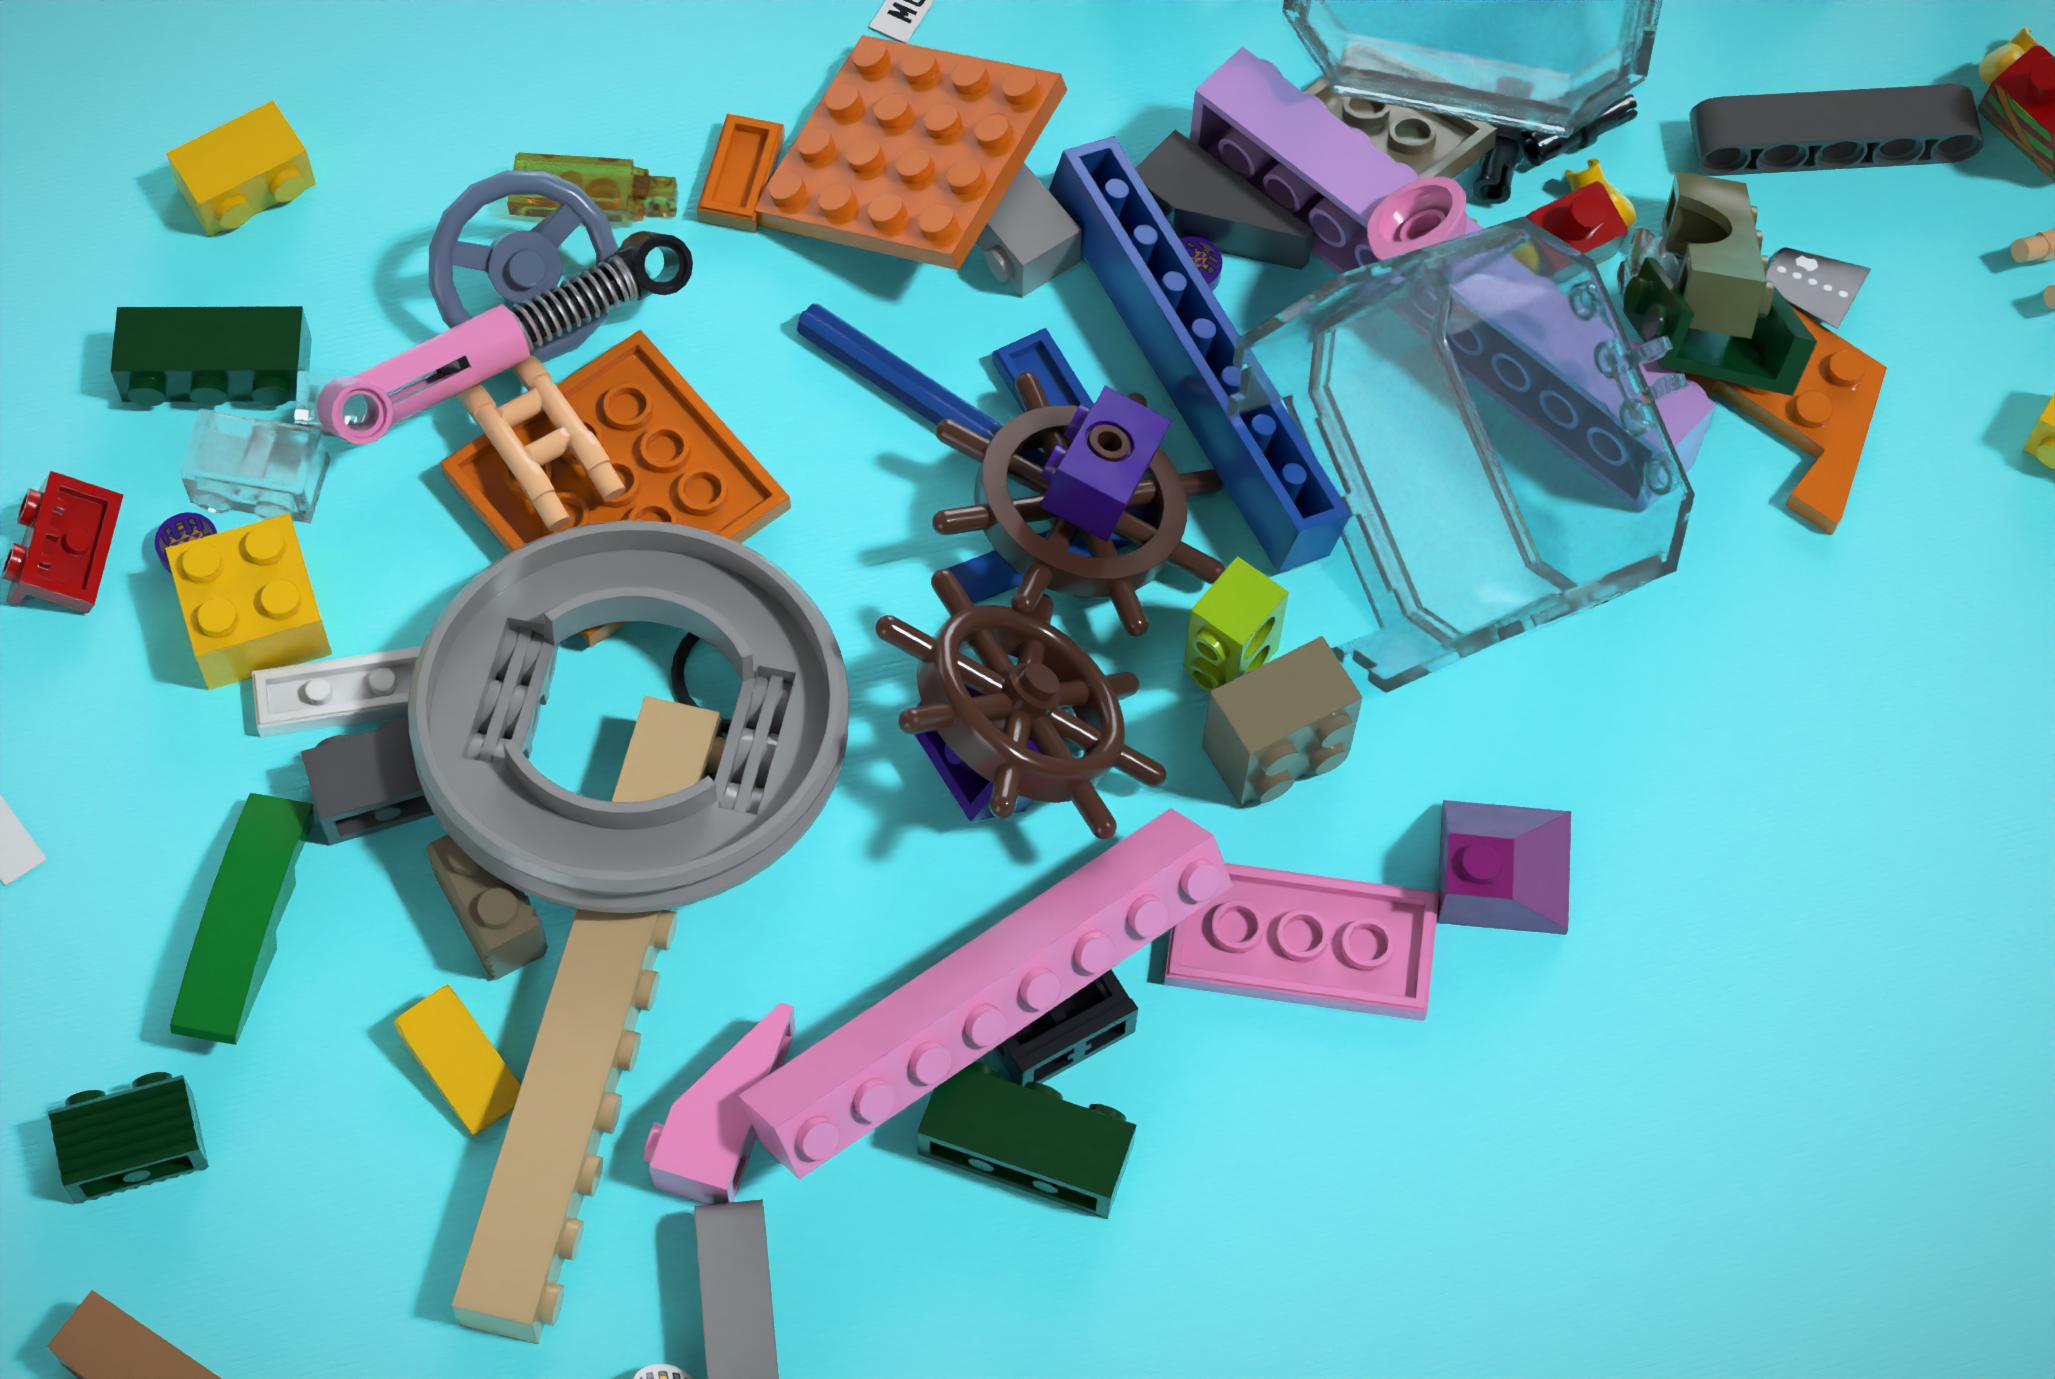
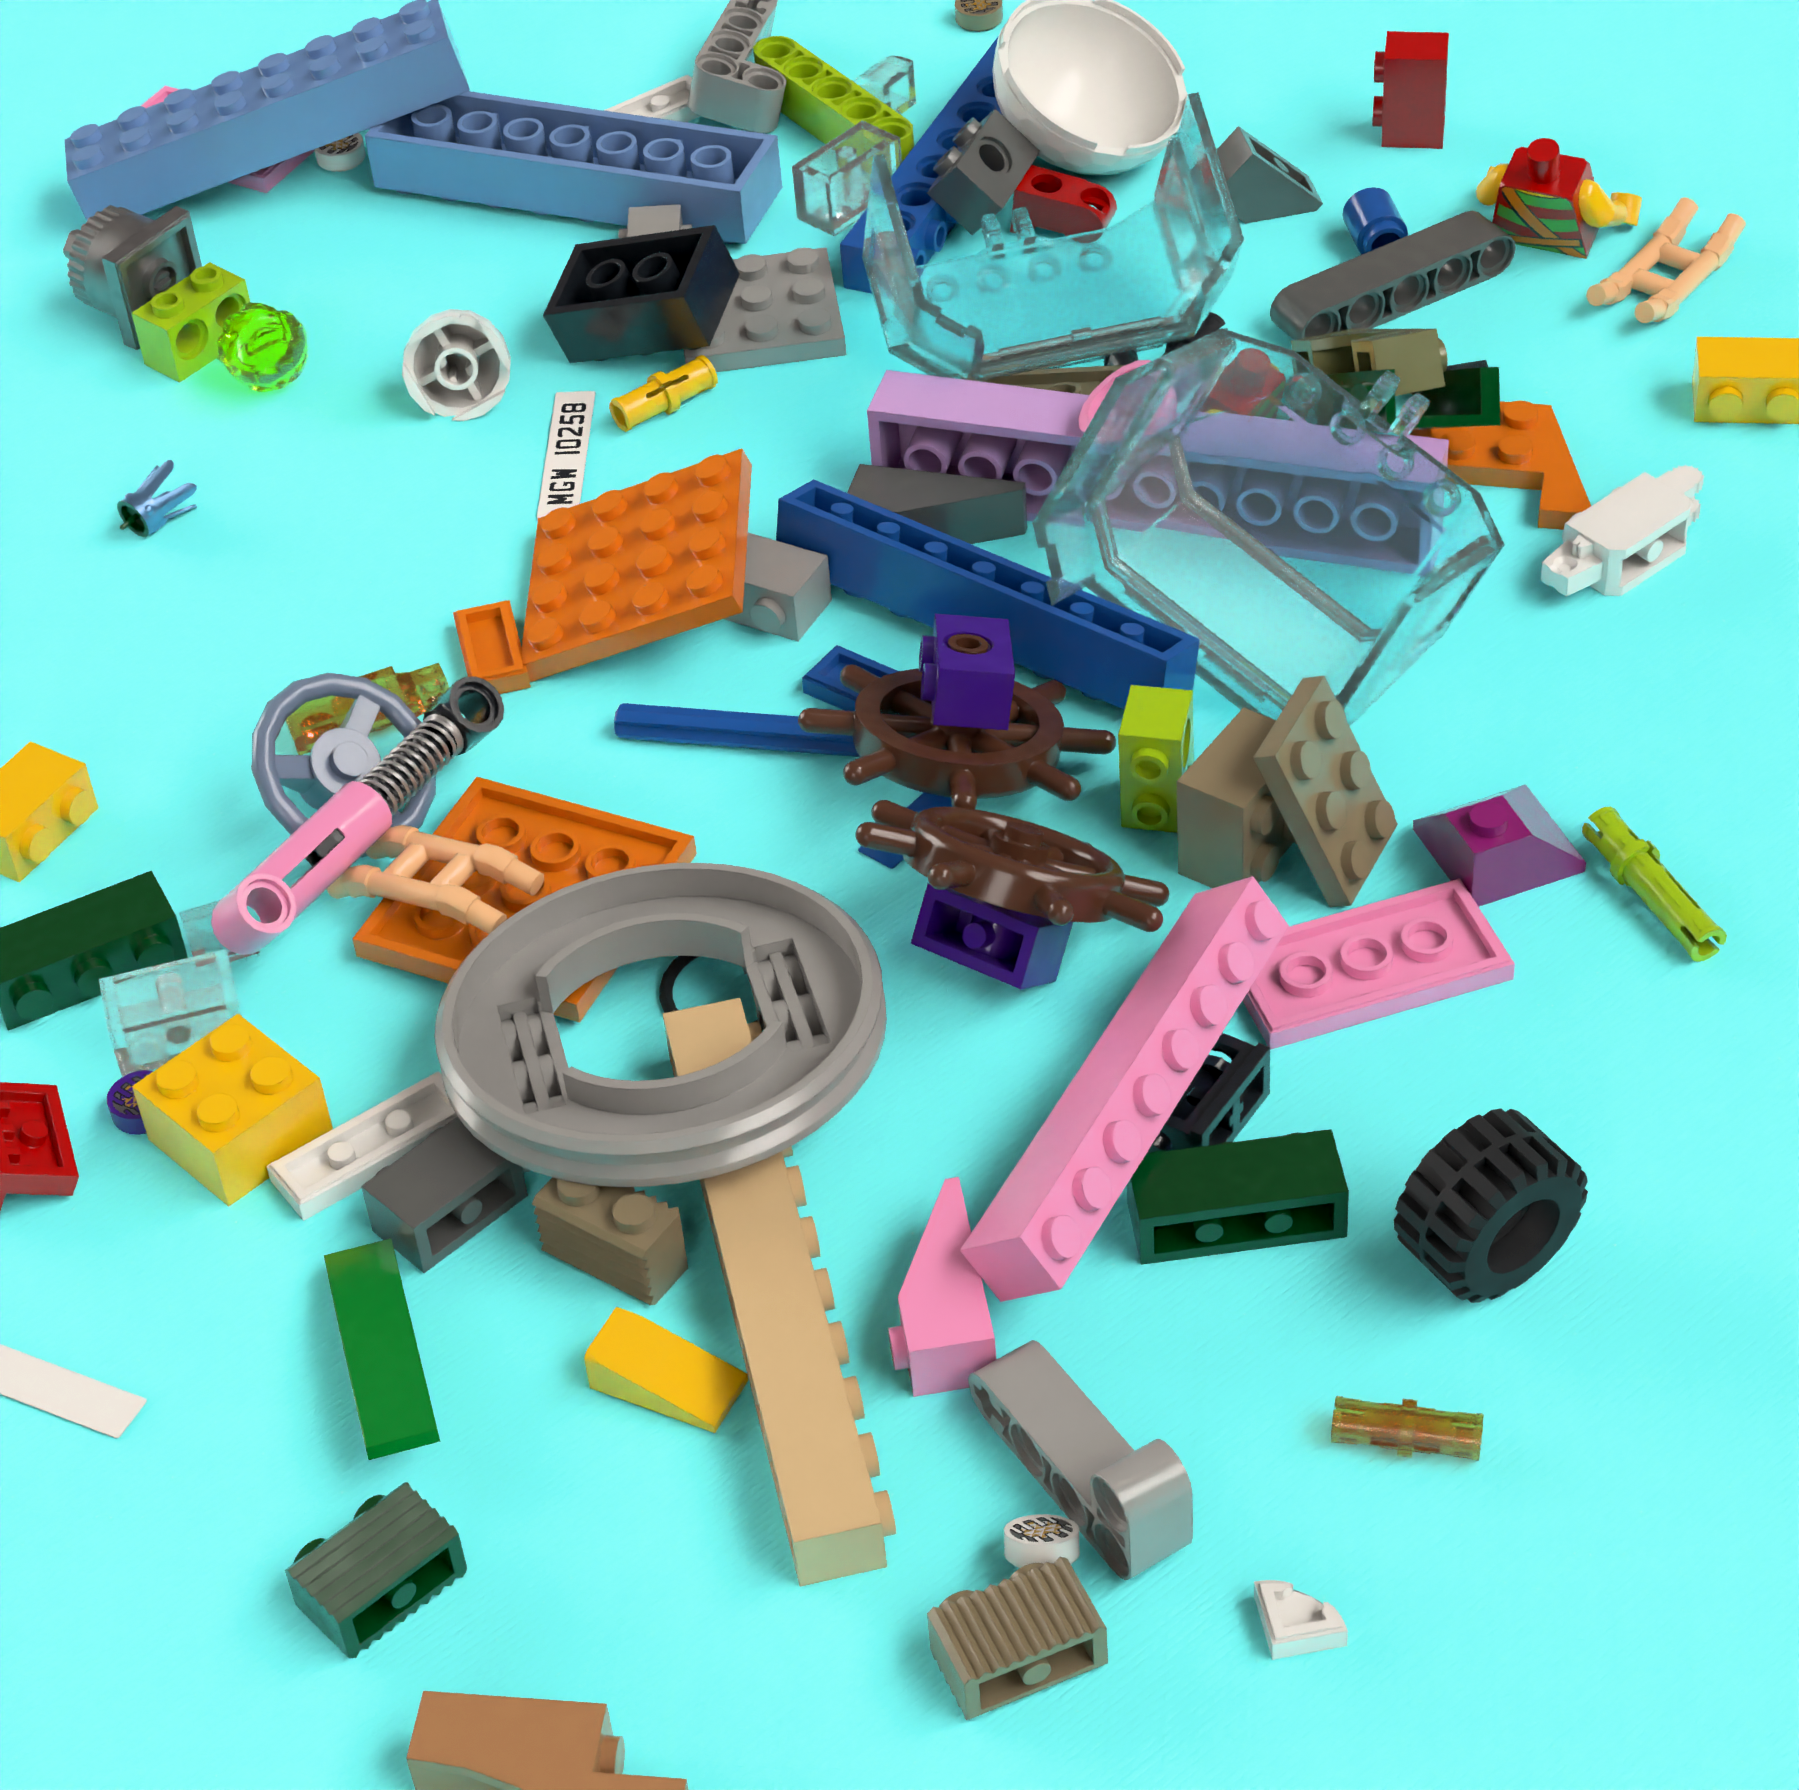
camera: 20 degrees left, 20 degrees down
(1215, 1284) = (1490, 1205): none -> black tyre
(1351, 757) = (1326, 791): none -> dark tan plate
(1607, 968) = (1640, 867): none -> lime pin
(1851, 569) = (1626, 534): none -> white hinge
(1863, 47) = (1373, 219): none -> blue brick

